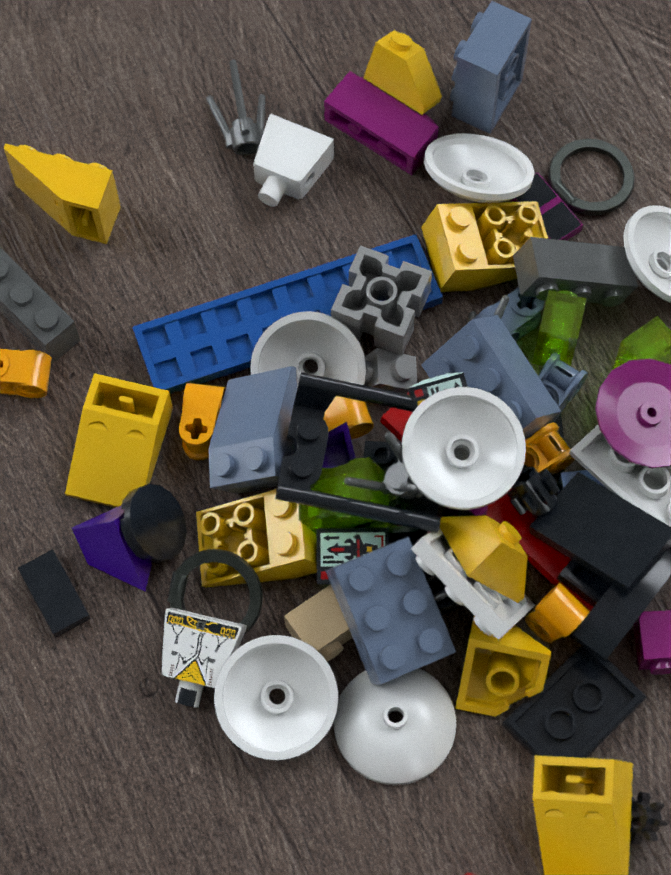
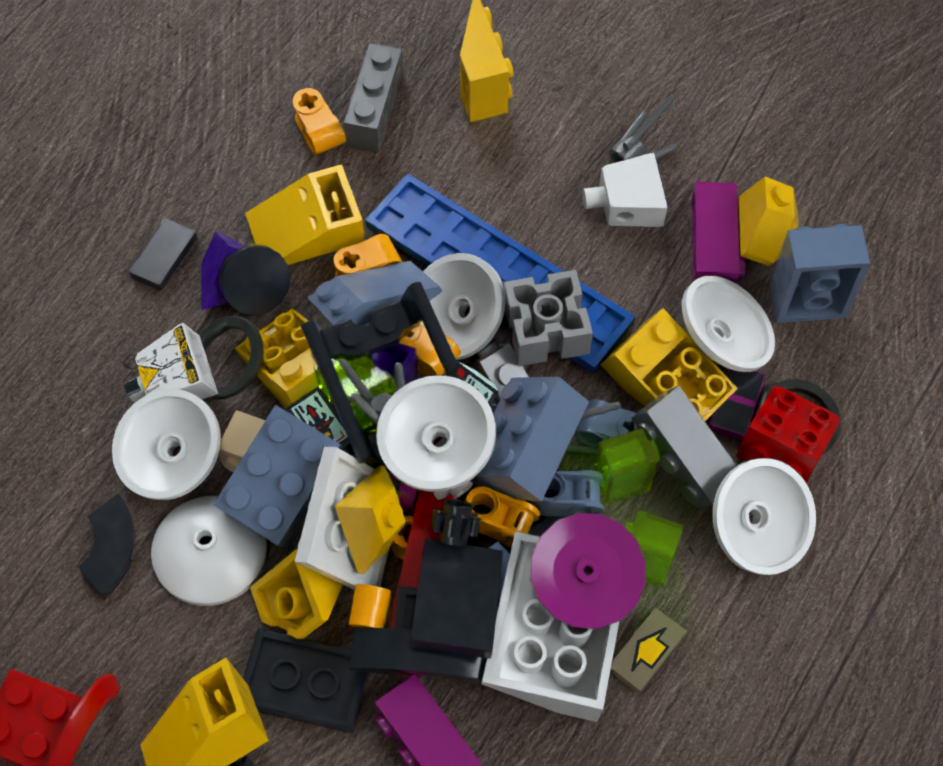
camera: 55 degrees right, 5 degrees down
(336, 806) = (112, 546): none -> black tile
(608, 189) = (789, 432): none -> red bracket

